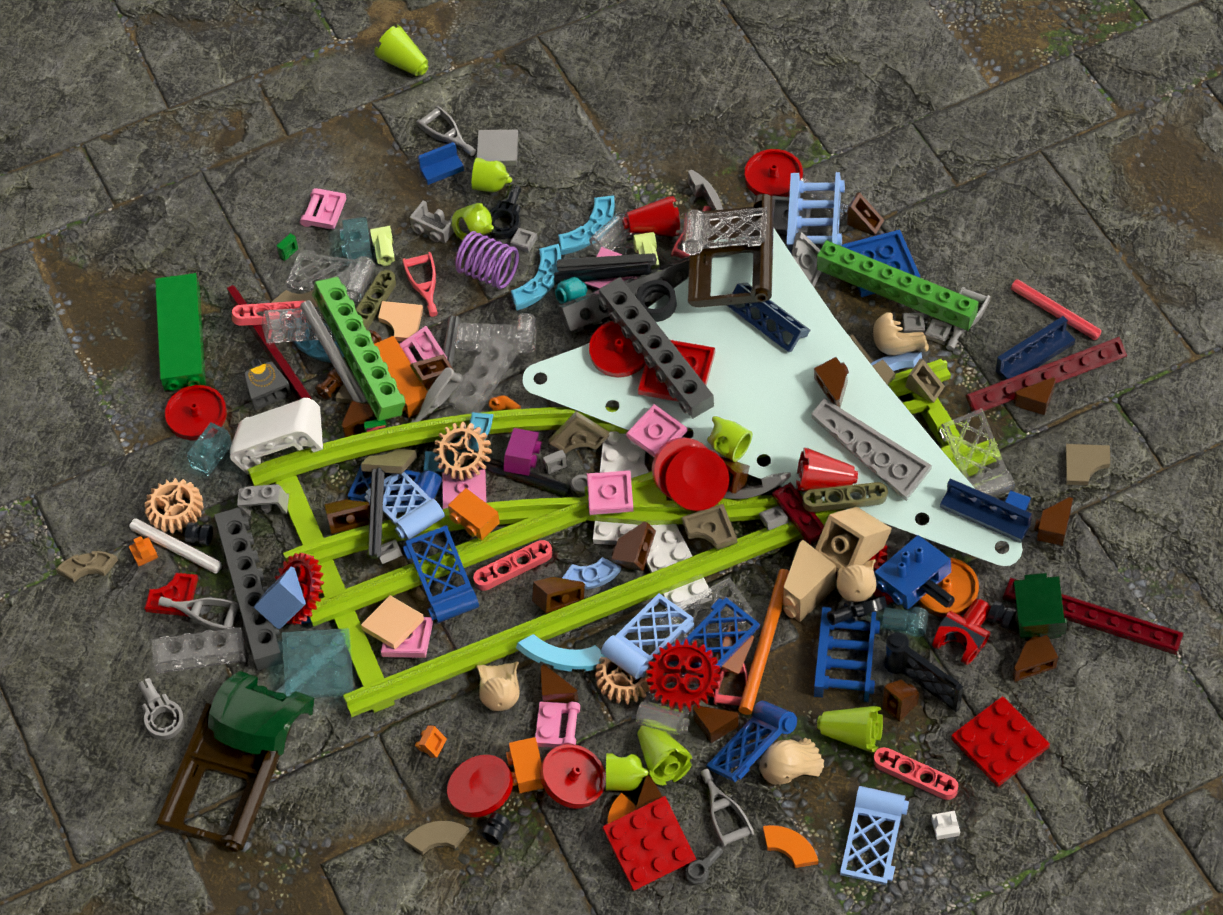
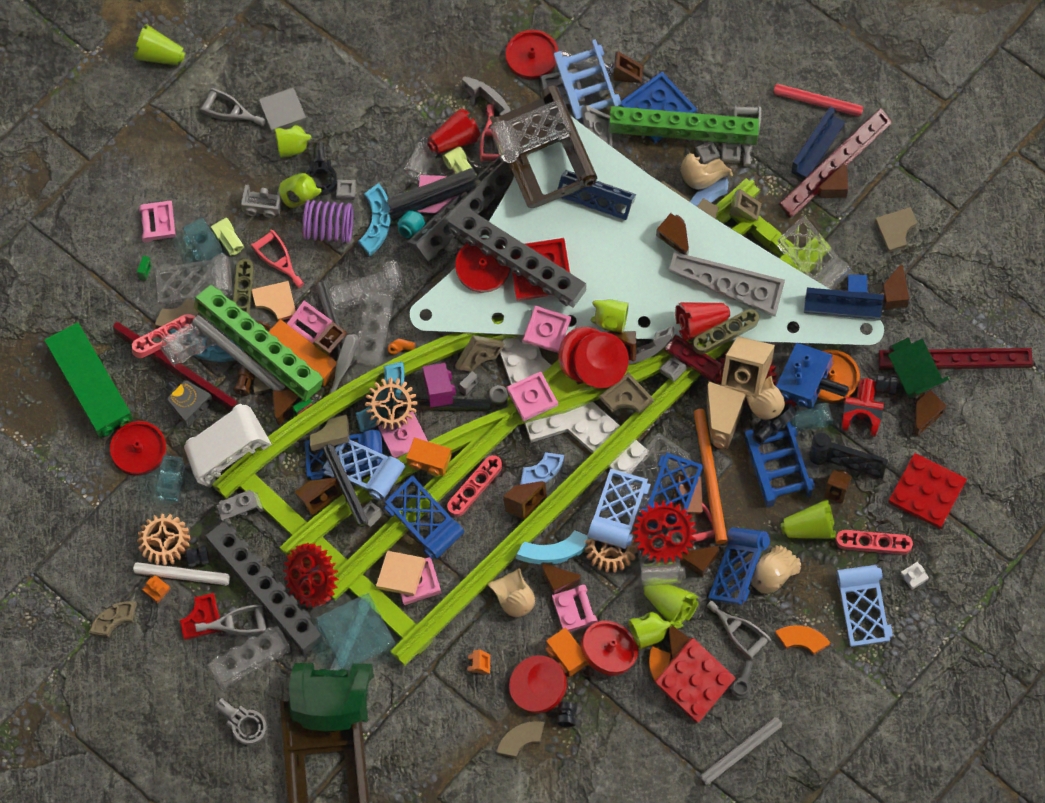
camera: 25 degrees left, 10 degrees up
(282, 599) = (303, 589): medium blue slope -> none
(440, 163) = (241, 143): blue panel -> none
(579, 238) = (402, 151): medium azure tile -> none
(634, 547) = (570, 436): reddish brown slope -> none
(662, 287) = (498, 198): black tyre -> none

